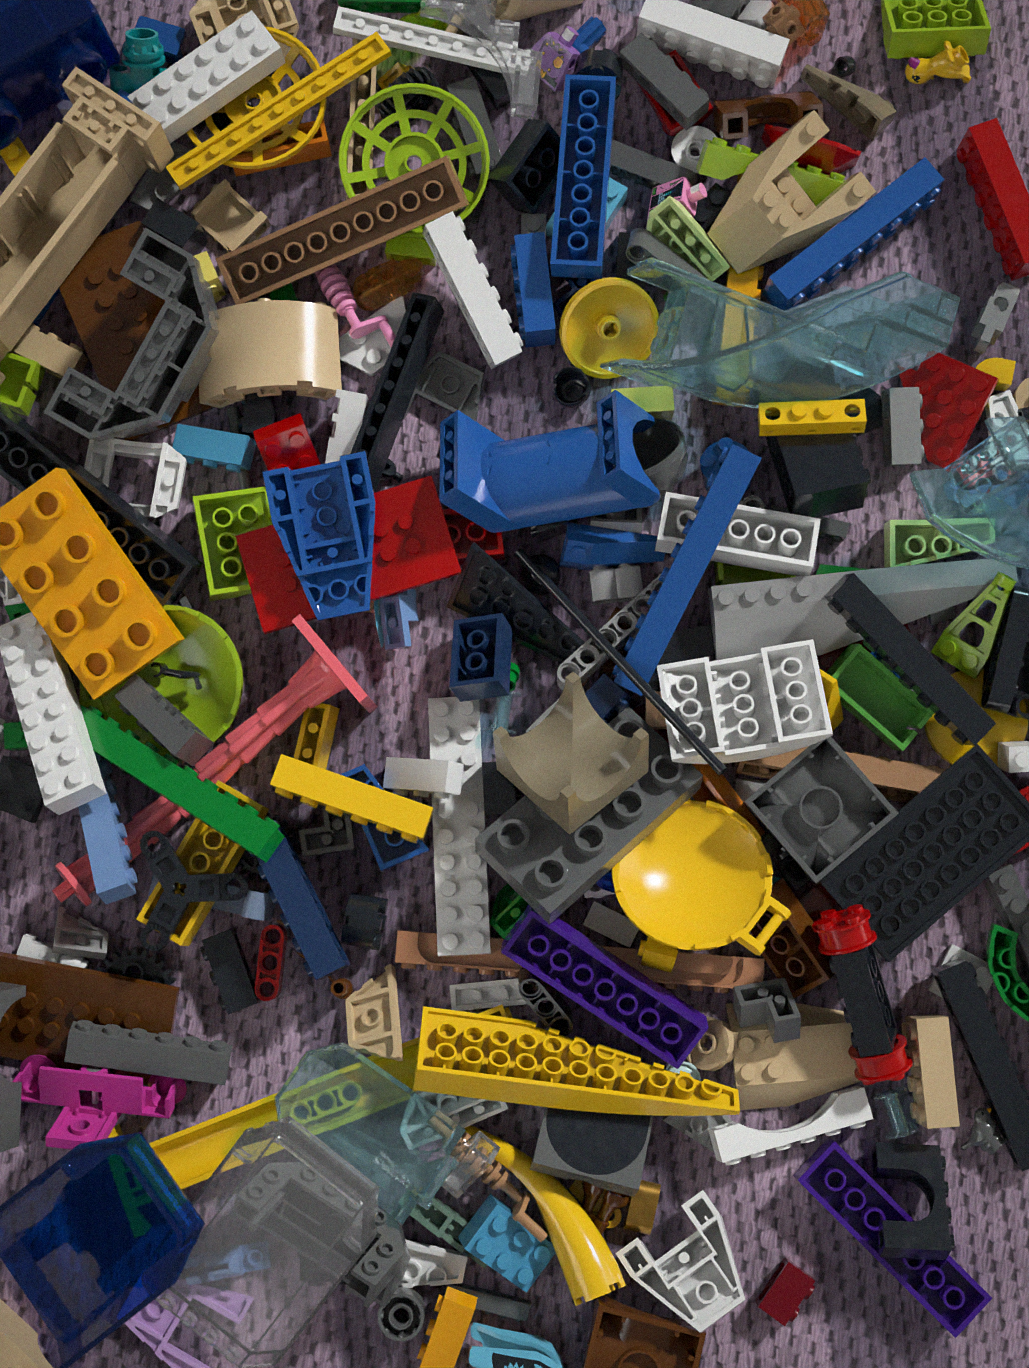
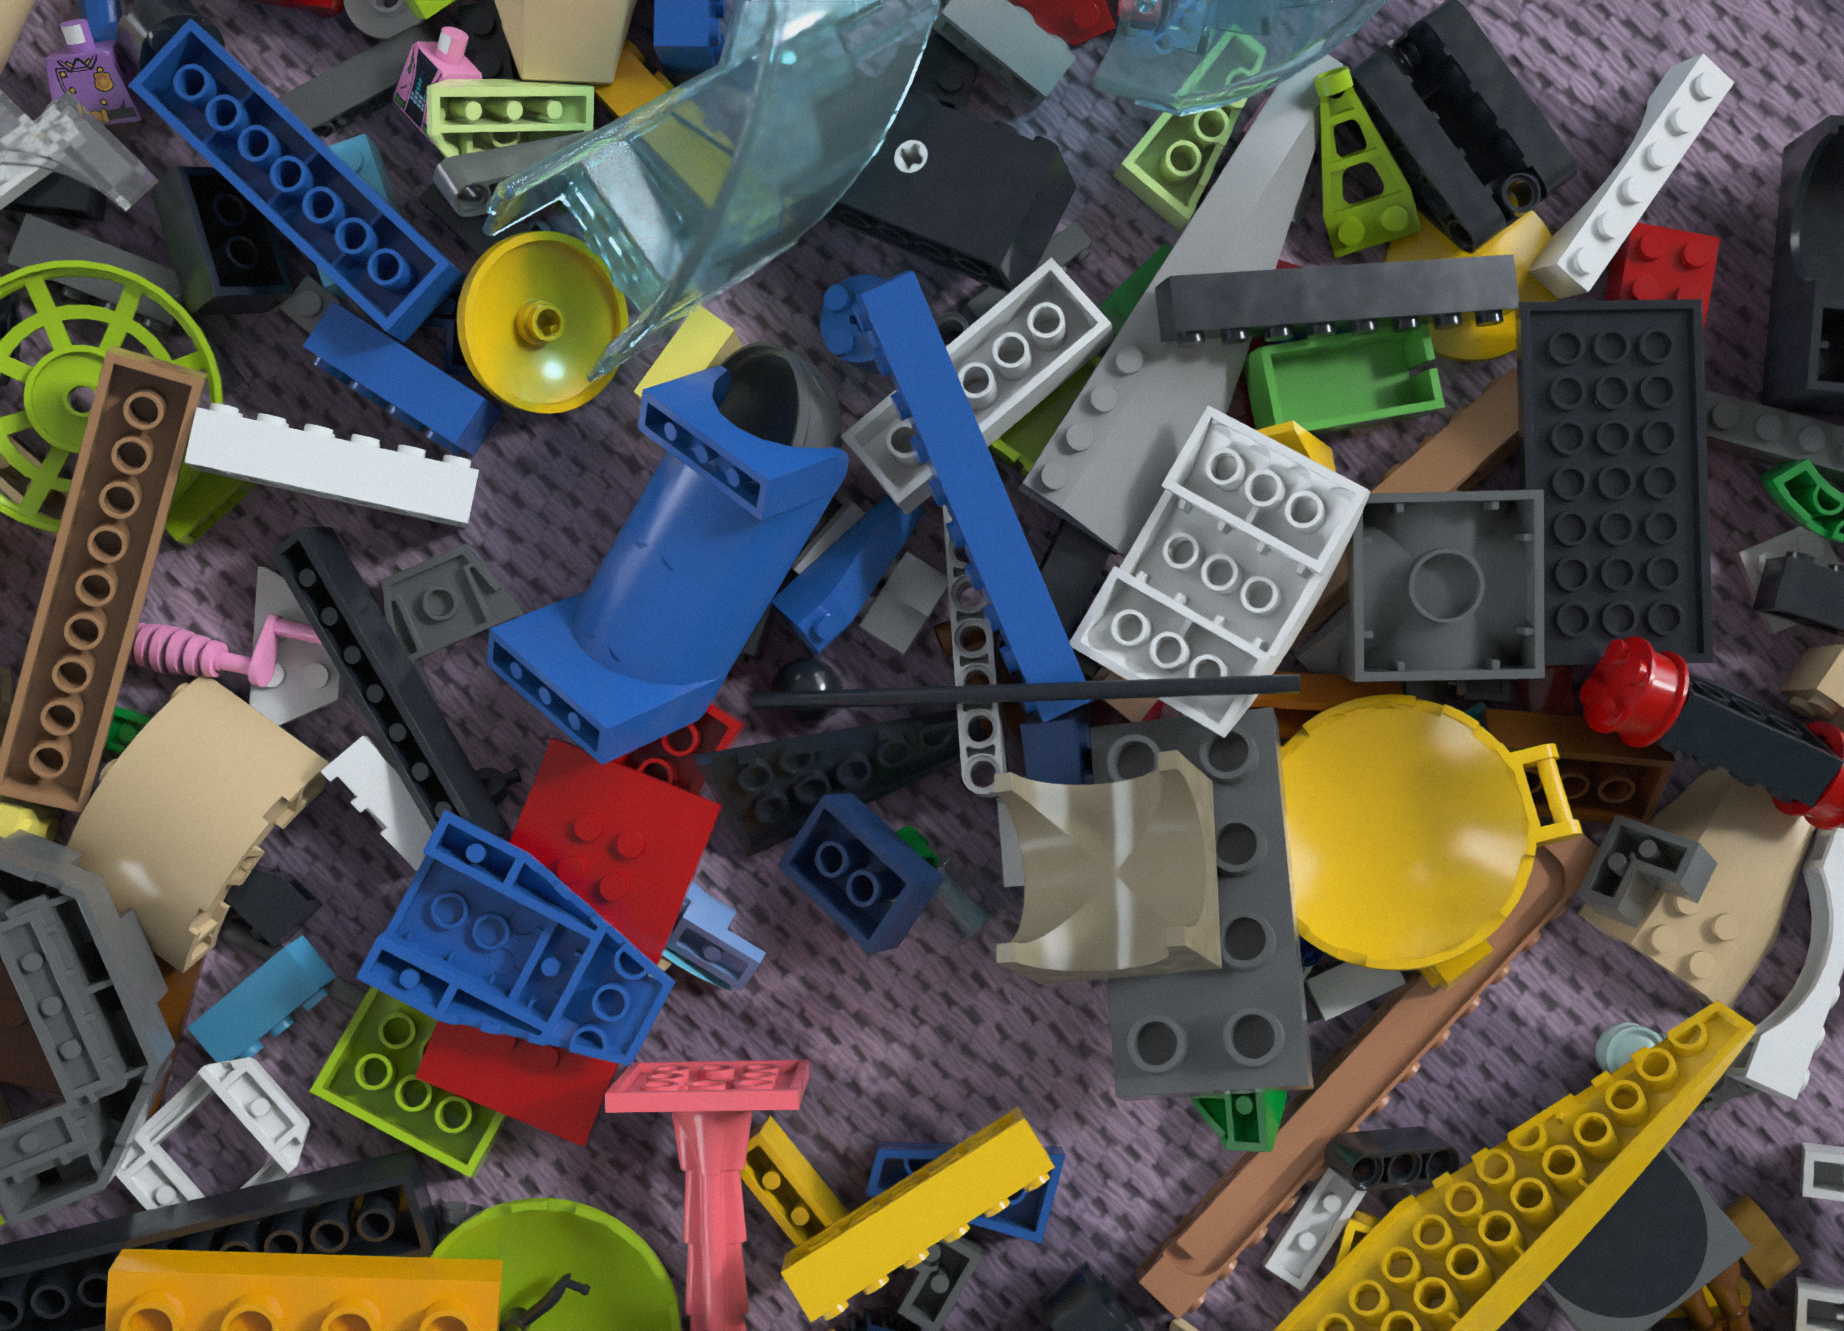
camera: 55 degrees left, 5 degrees up
(286, 444) = (345, 901): red brick -> none
(386, 282) = (225, 573): clear orange piece -> none
(423, 777) = (960, 1082): white brick -> none
(457, 821) = (1065, 1087): white plate -> none
(497, 790) = (1069, 1005): black brick -> none
(574, 380) = (585, 425): black hair -> none
(605, 986) = (1444, 1066): dark purple brick -> none
(721, 1049) = (1633, 965): tan plate -> none
(812, 417) = (904, 152): yellow piece -> none

